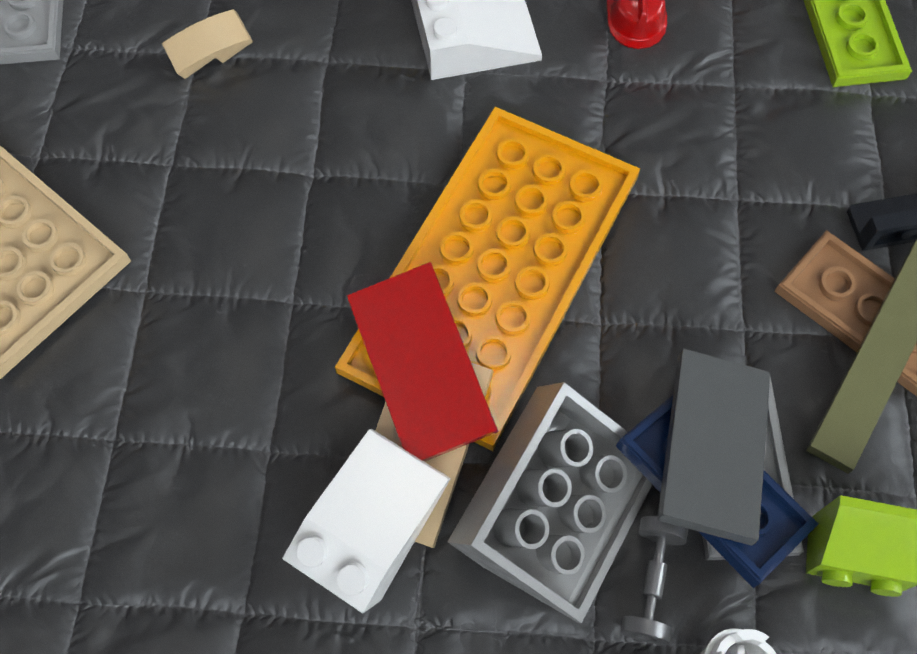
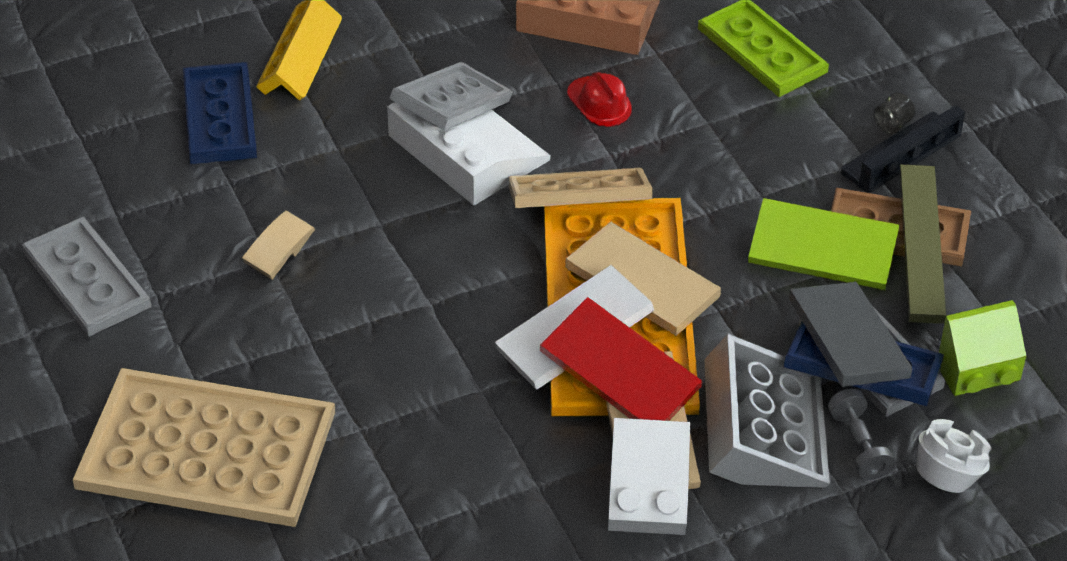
camera: 30 degrees left, 20 degrees down
(464, 264) = (606, 288): none -> white tile
(533, 254) = (672, 288): none -> tan tile
(540, 109) = (579, 187): none -> tan tile
(768, 299) = (823, 243): none -> lime tile

